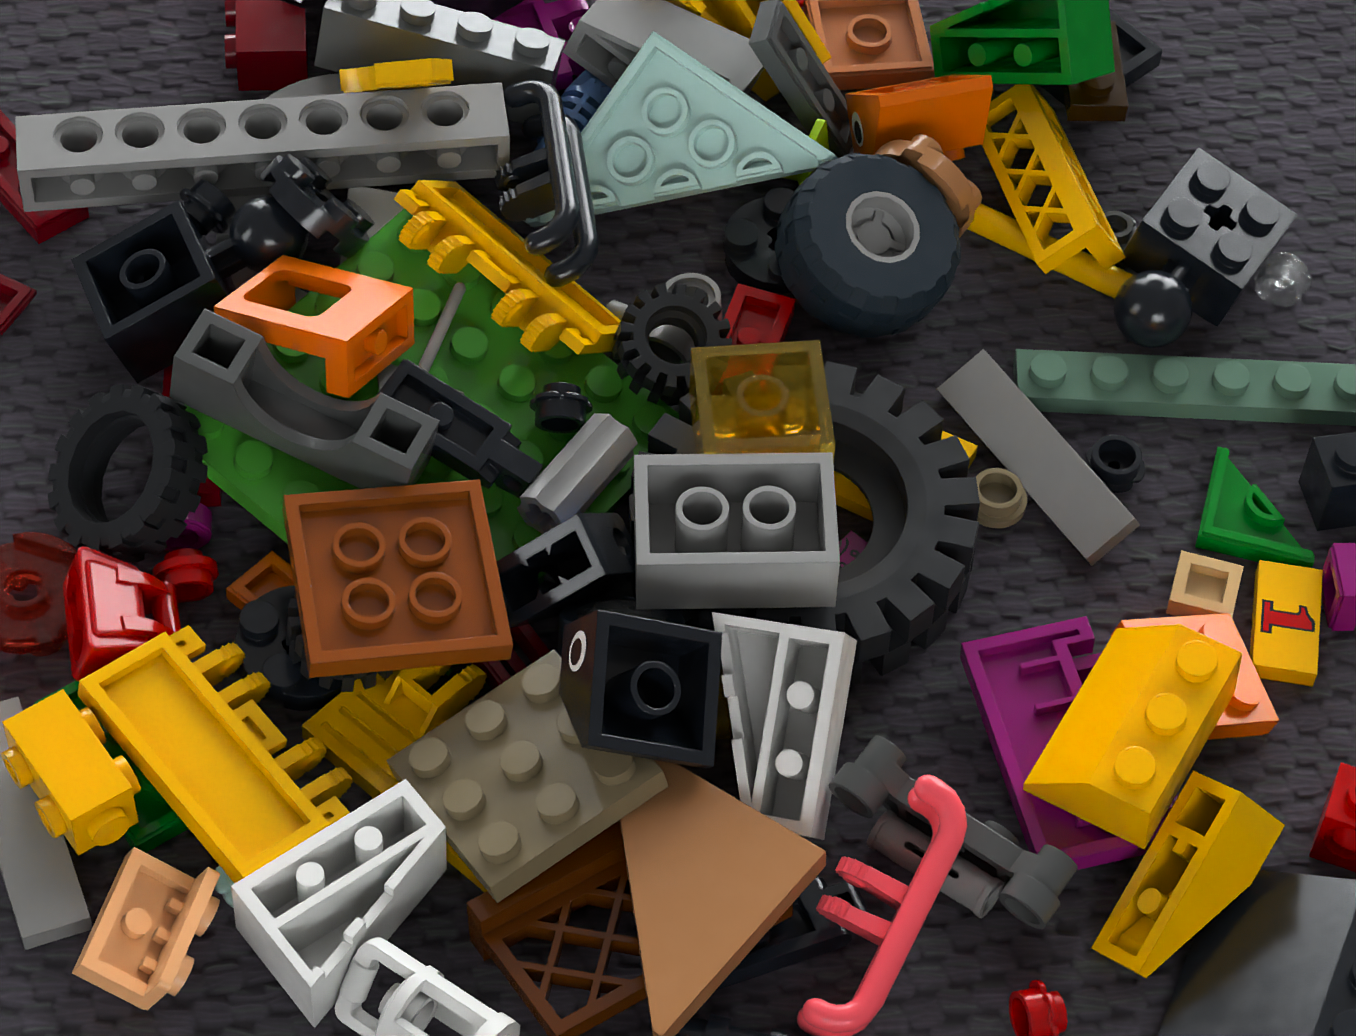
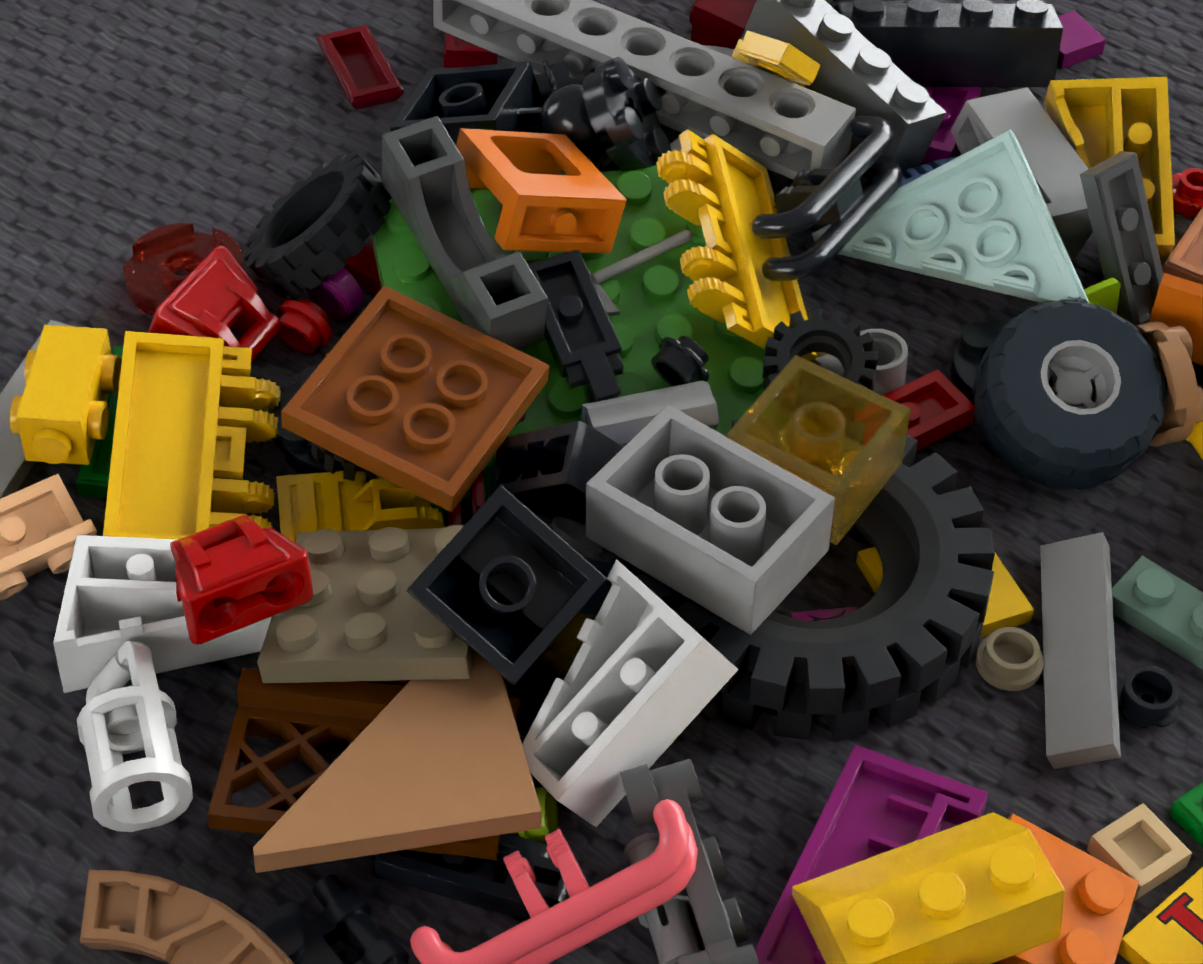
camera: 40 degrees right, 5 degrees down
(422, 831) = (237, 577): none -> red piece

